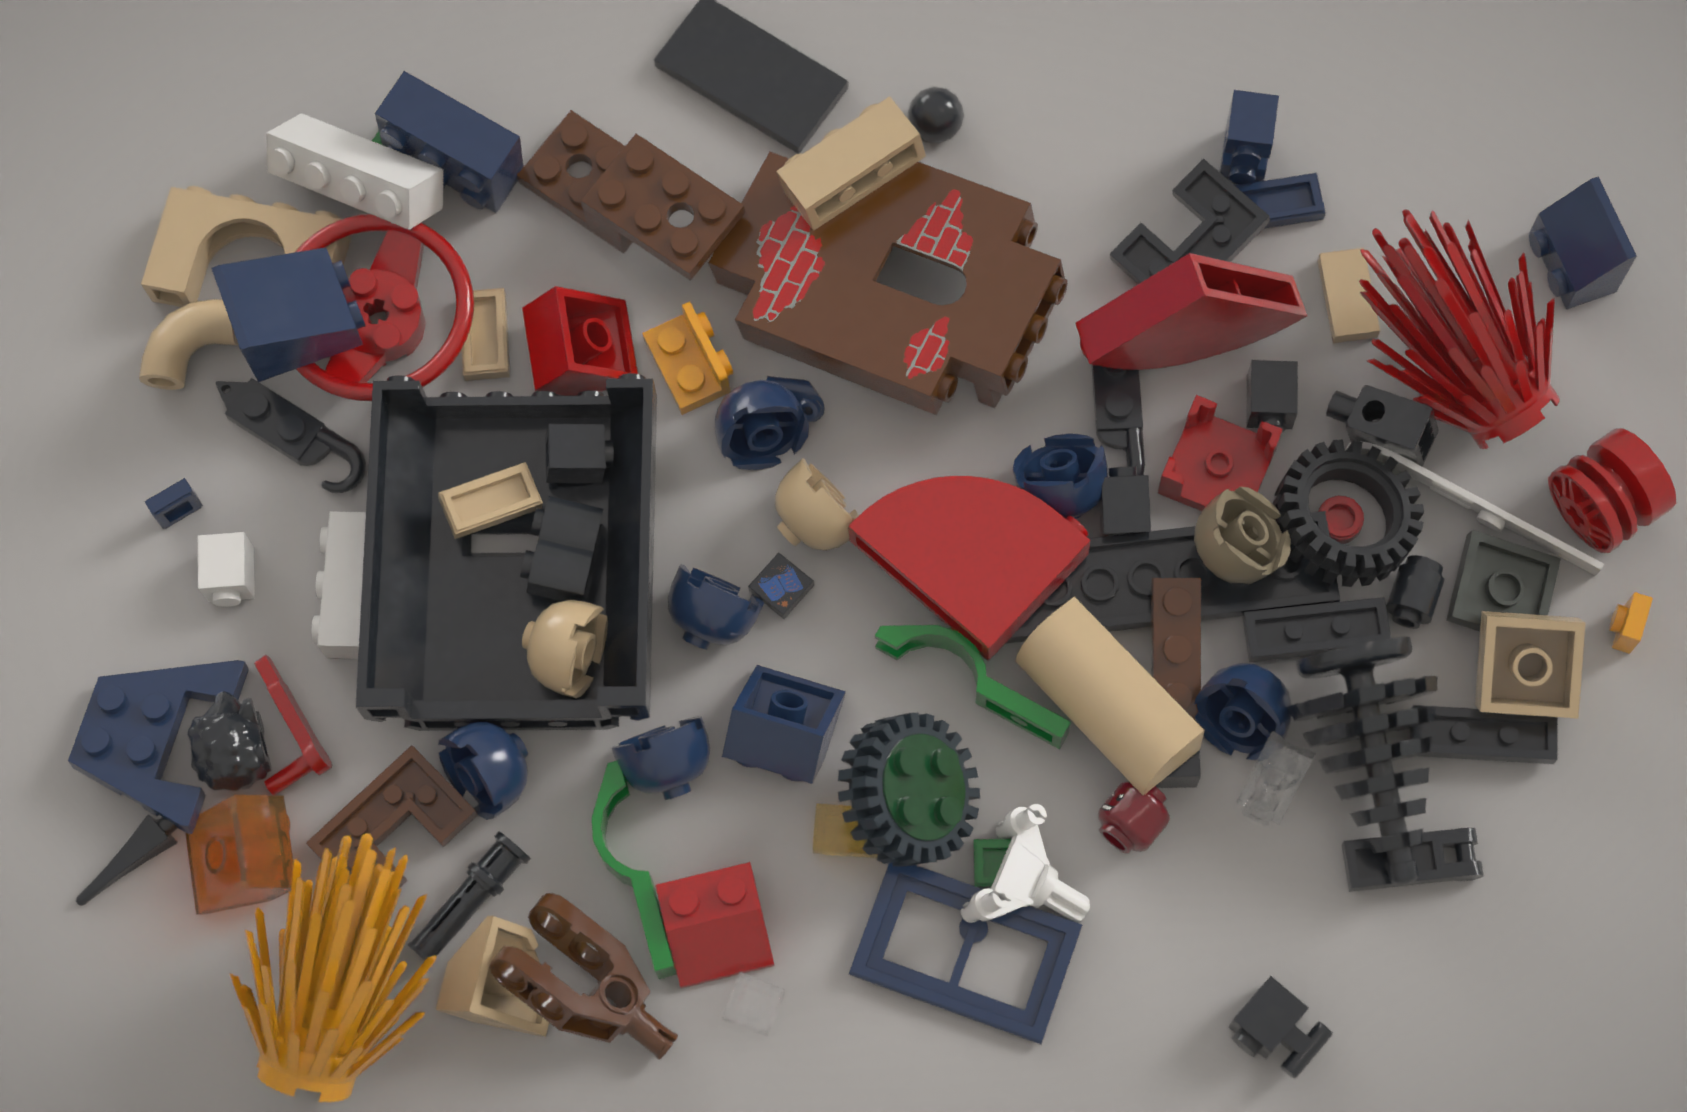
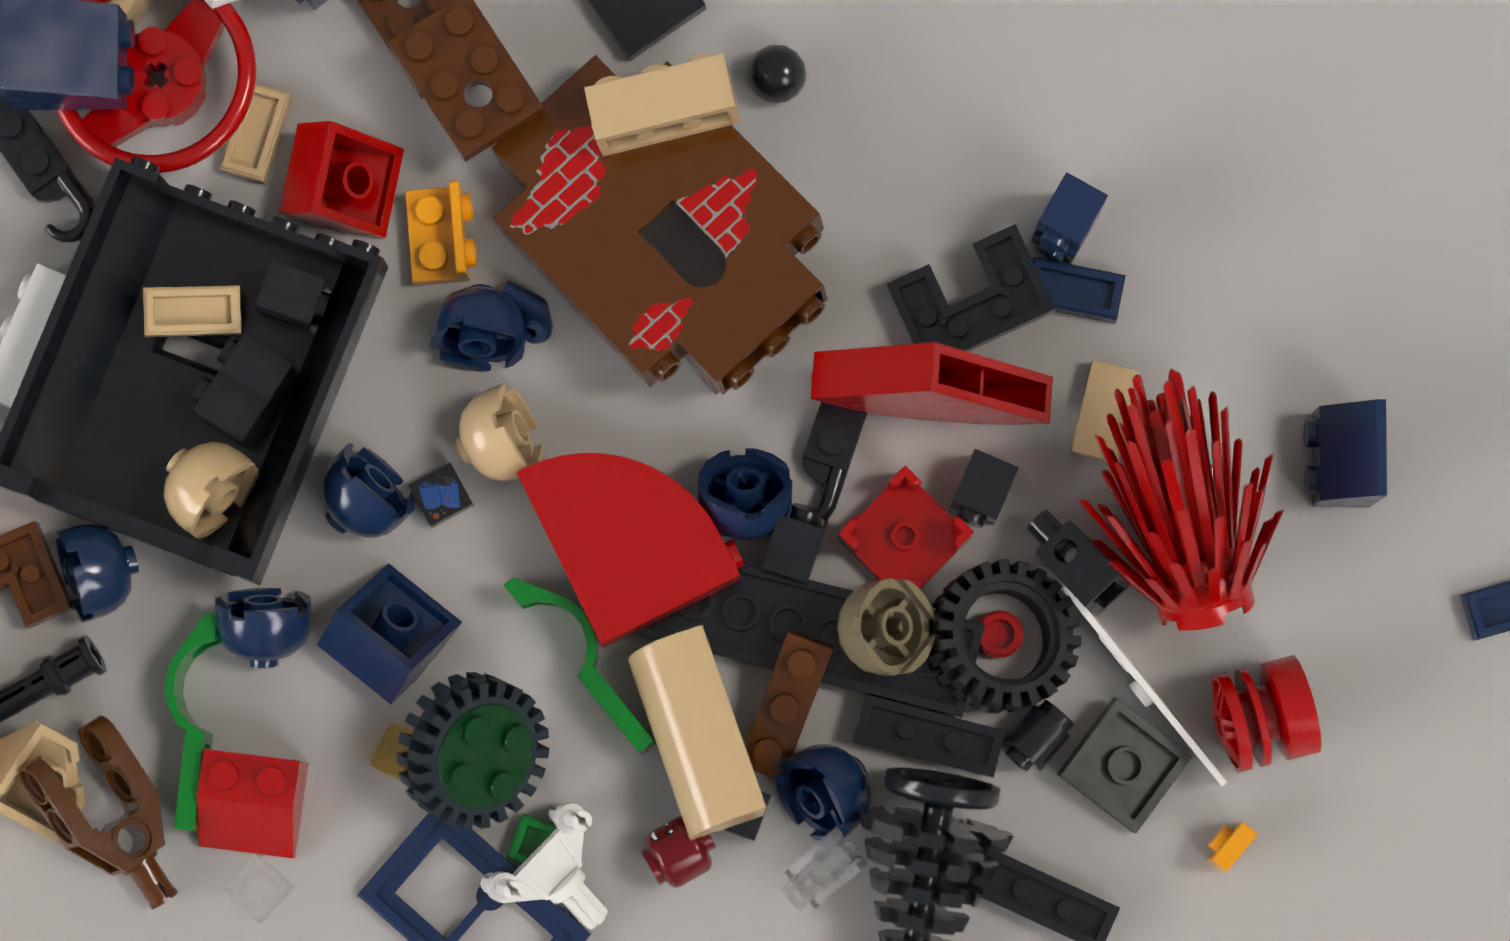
camera: 20 degrees right, 10 degrees up
(1530, 664) = (1111, 853): tan brick -> none

